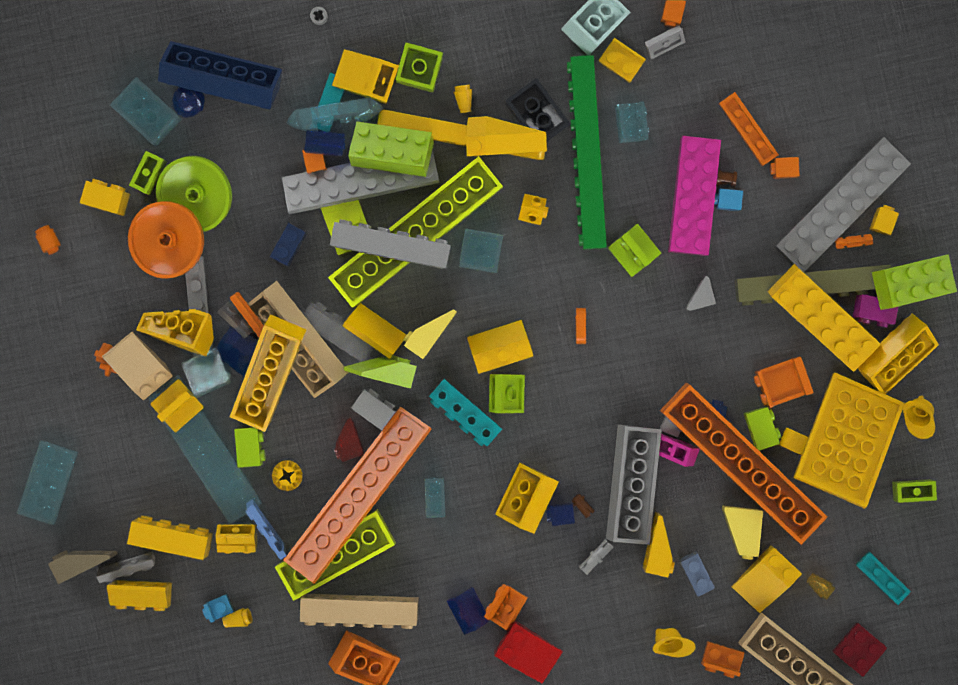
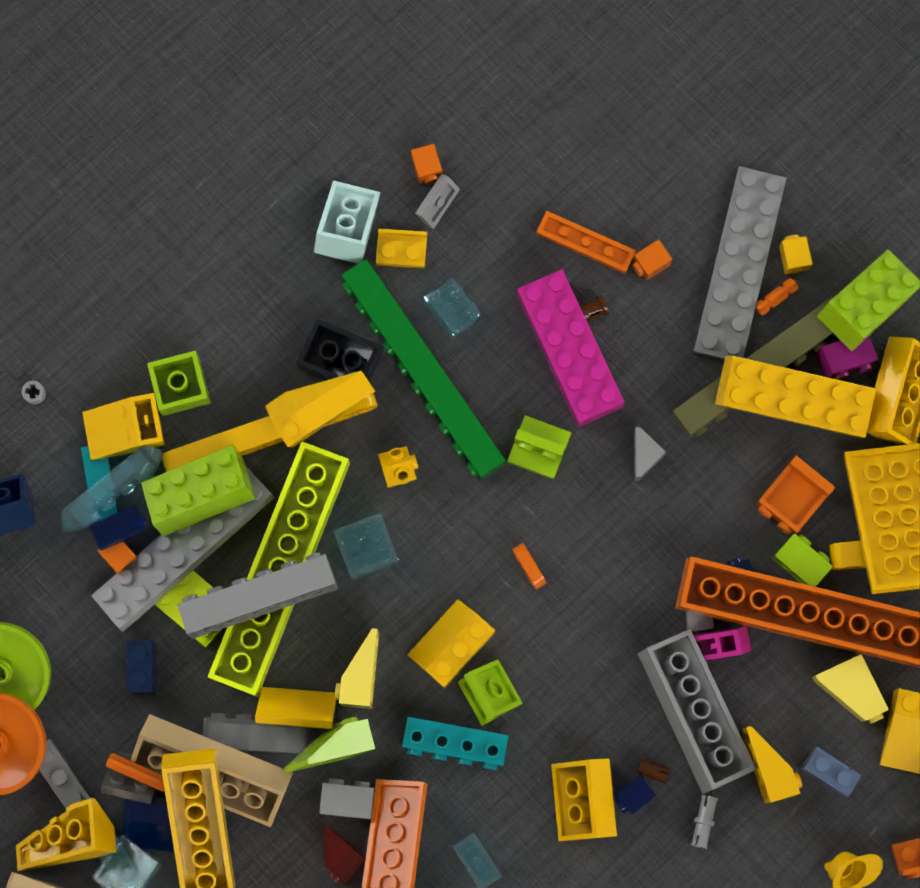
camera: 30 degrees left, 10 degrees down
(463, 97) = (248, 389): yellow cone -> none
(728, 199) = (610, 330): dark azure brick -> none

